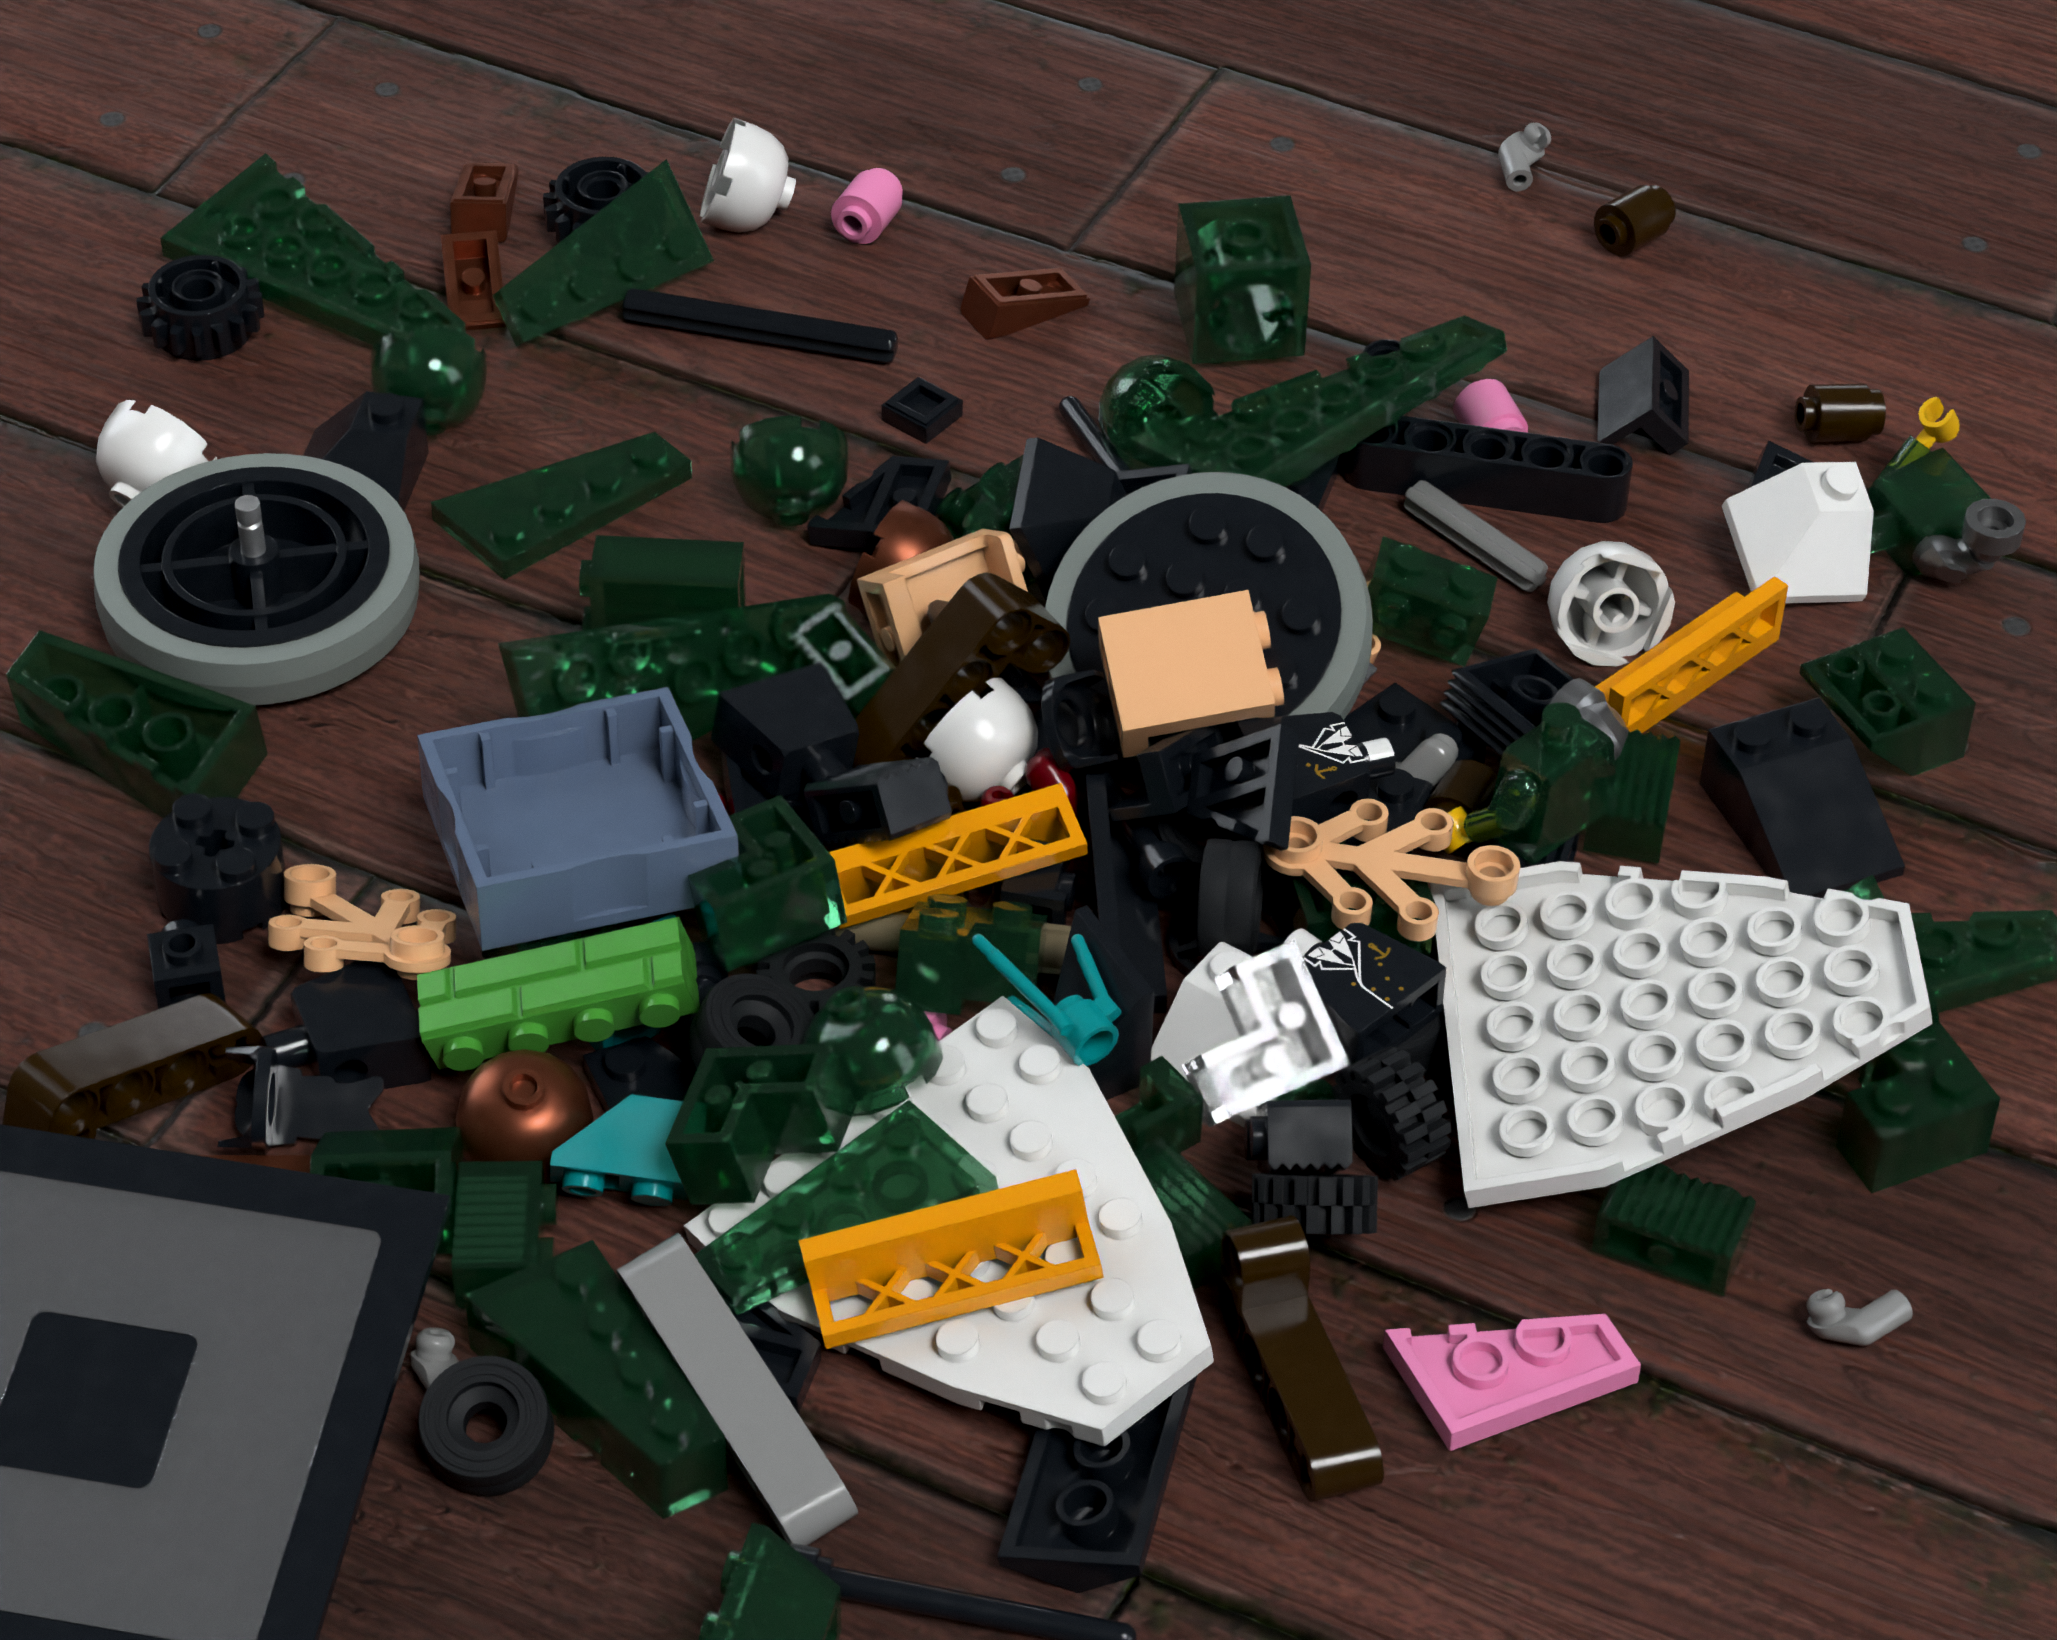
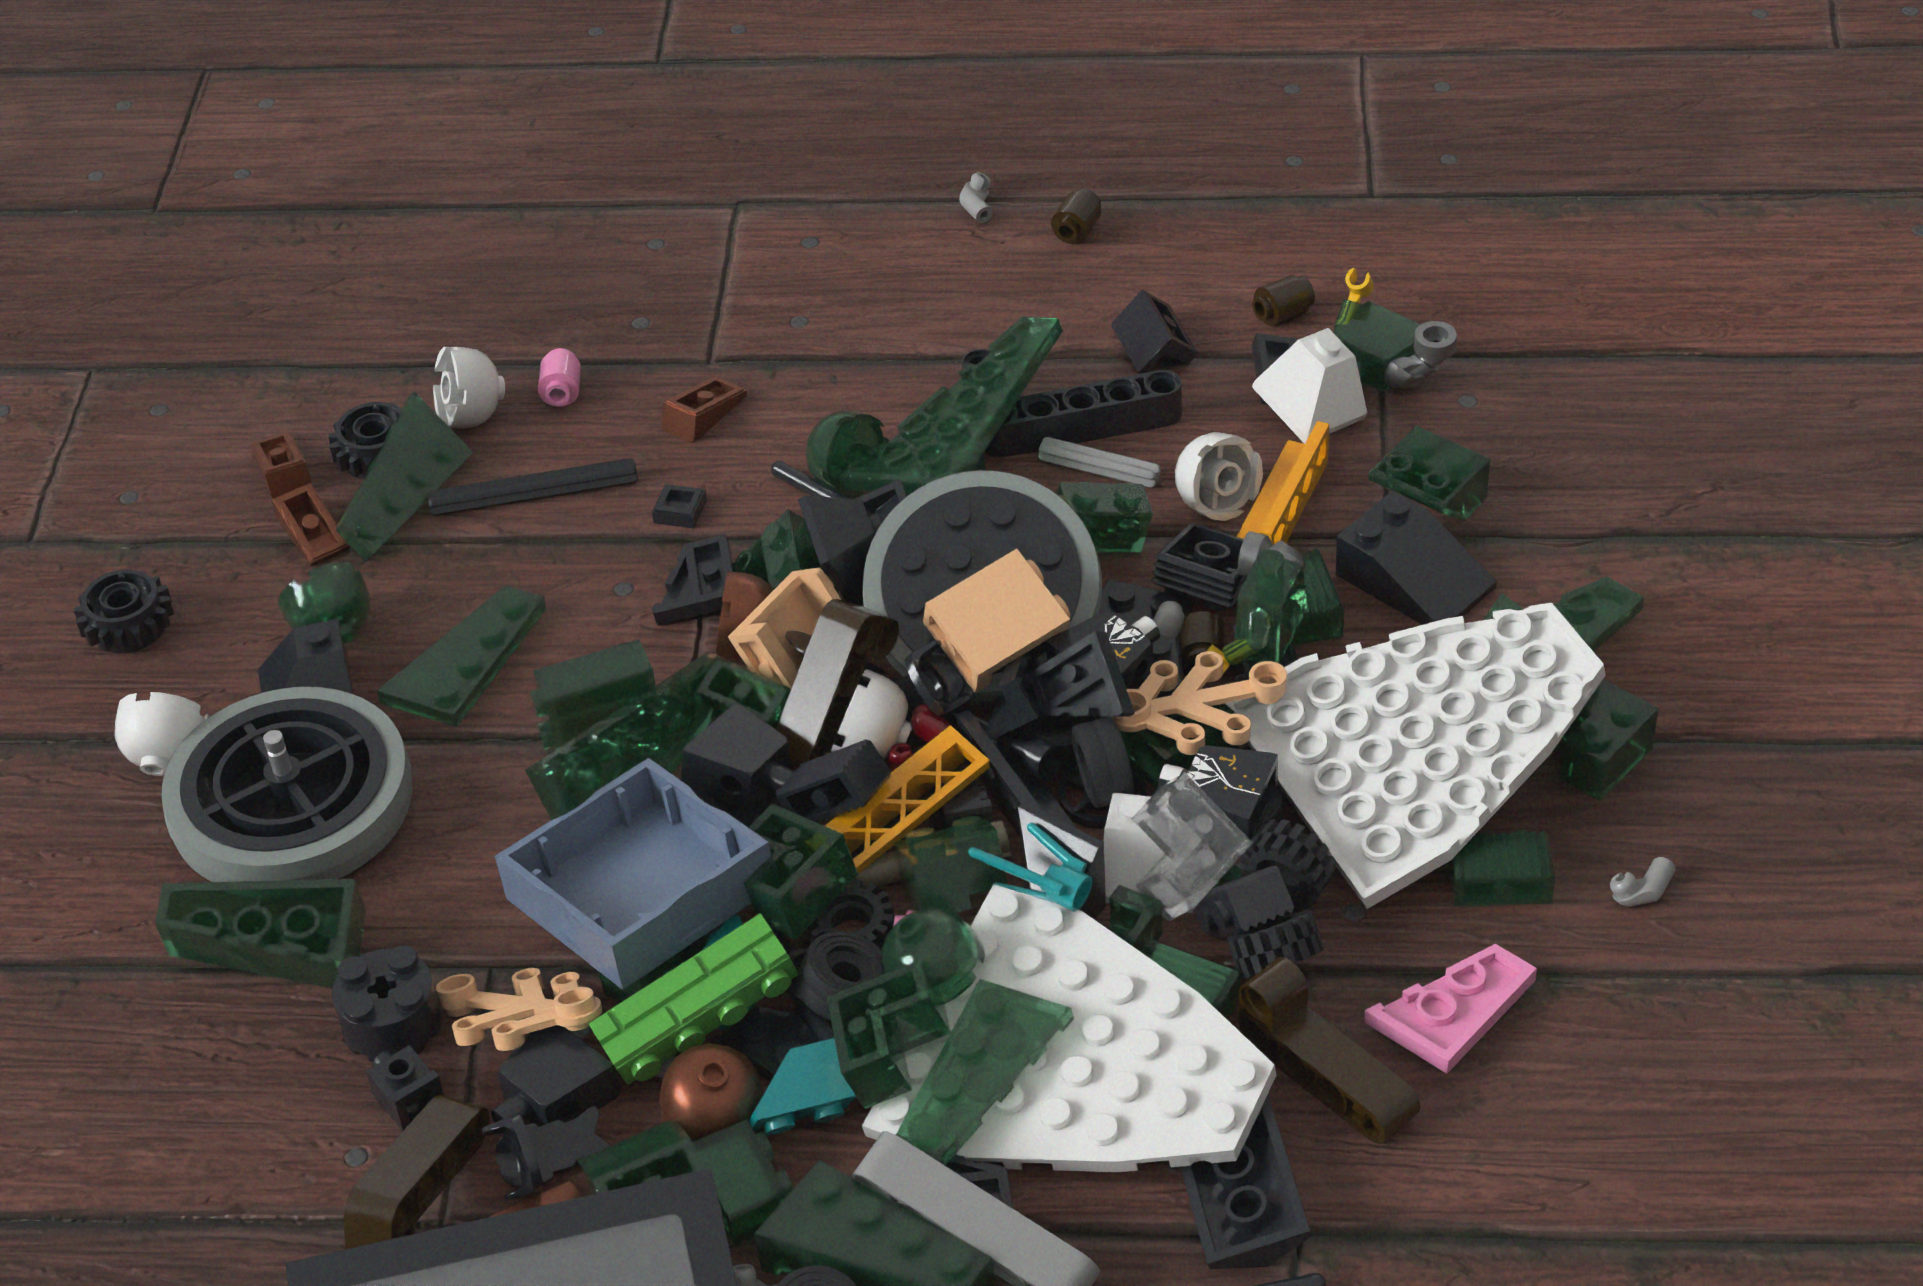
camera: 20 degrees left, 0 degrees up
(306, 257) = (183, 550): clear green wing -> none
(789, 468) = (621, 578): clear green cylinder -> none
(947, 1246) = (1060, 1064): light orange fence -> none
(1242, 279) = (855, 342): clear green brick -> none
(1489, 405) = (1061, 372): bright pink brick -> none

